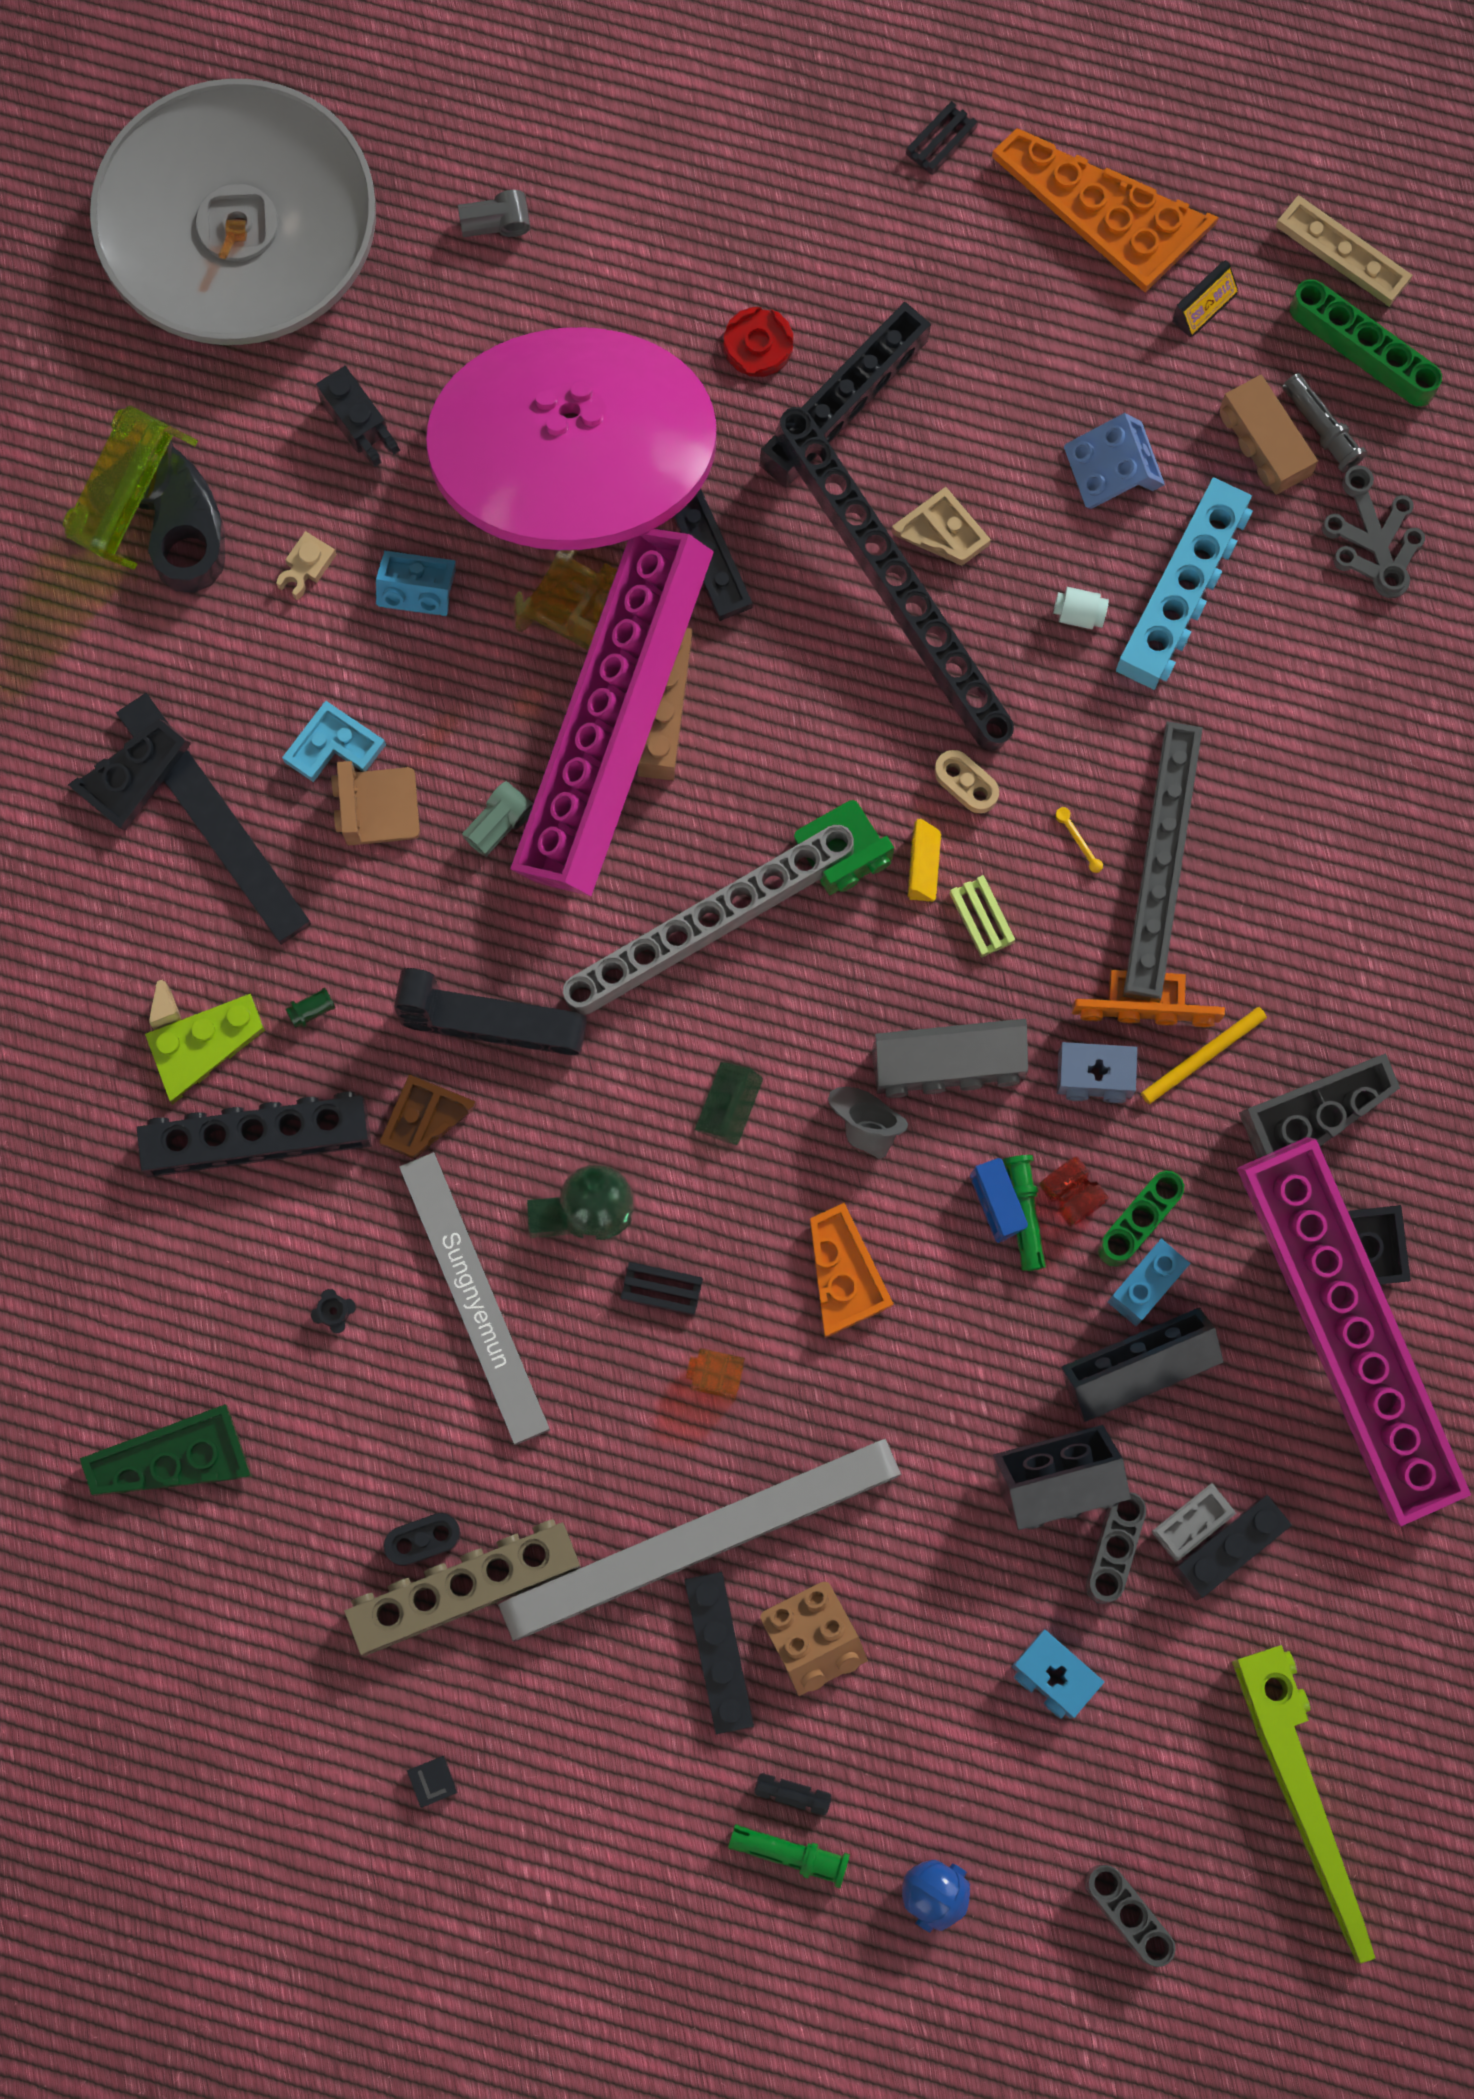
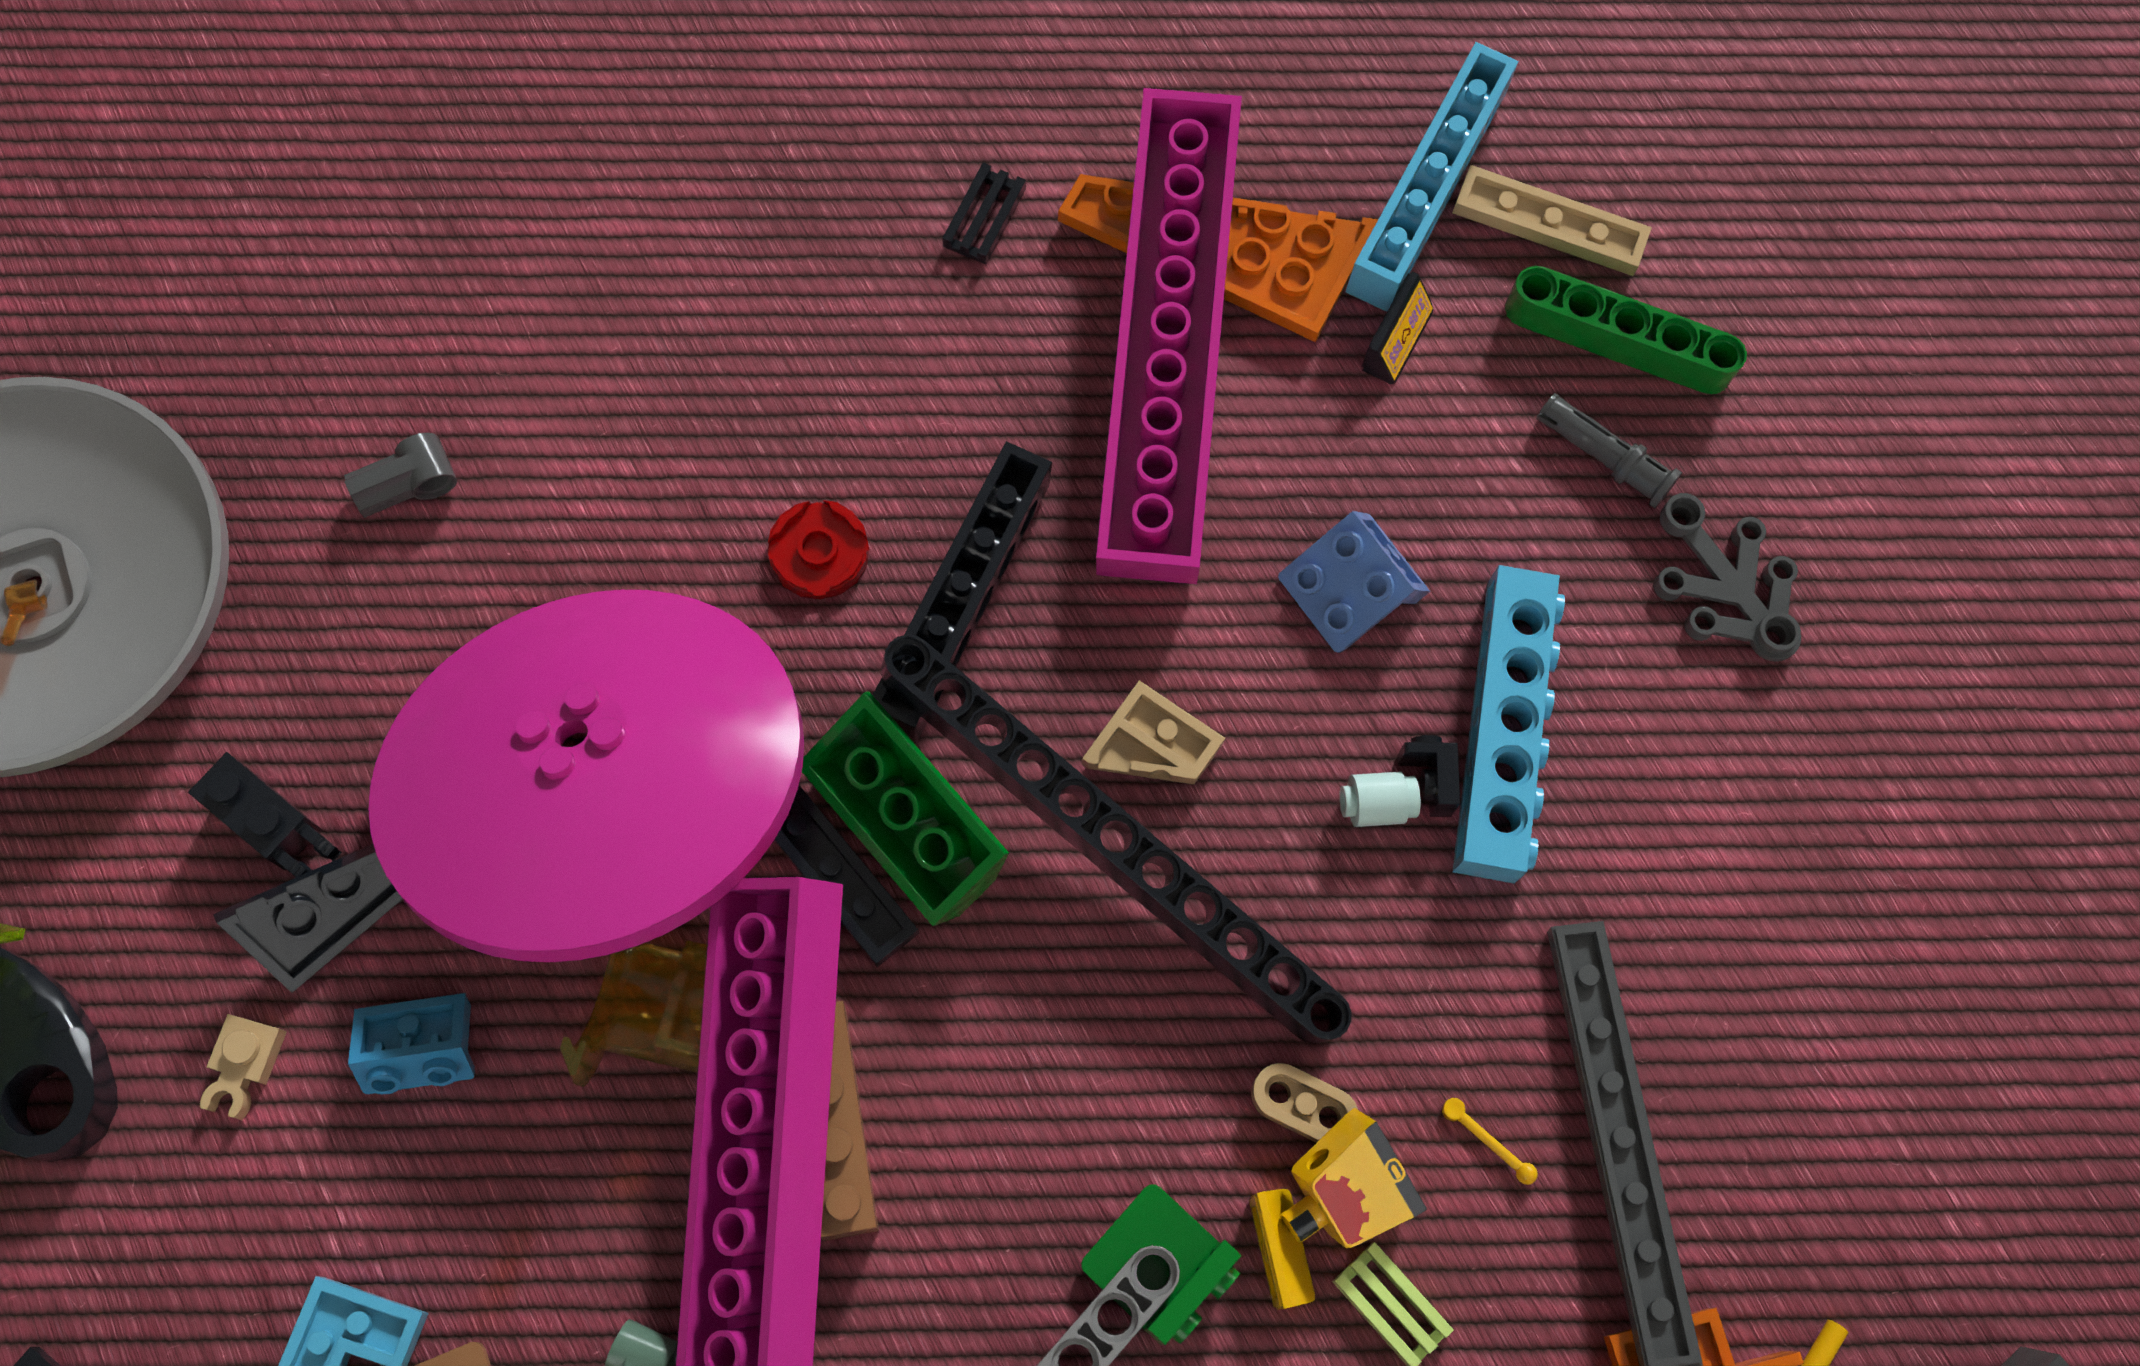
camera: 20 degrees left, 5 degrees down
(376, 484) = (311, 917): none -> black wing
(765, 524) = (904, 811): none -> green slope
(978, 833) = (1351, 1185): none -> yellow torso
(1040, 257) = (1169, 338): none -> dark pink brick
(1127, 595) = (1441, 780): none -> black bracket
(1267, 194) = (1431, 177): none -> medium azure brick
(1267, 435) = (1544, 486): medium nougat brick -> none

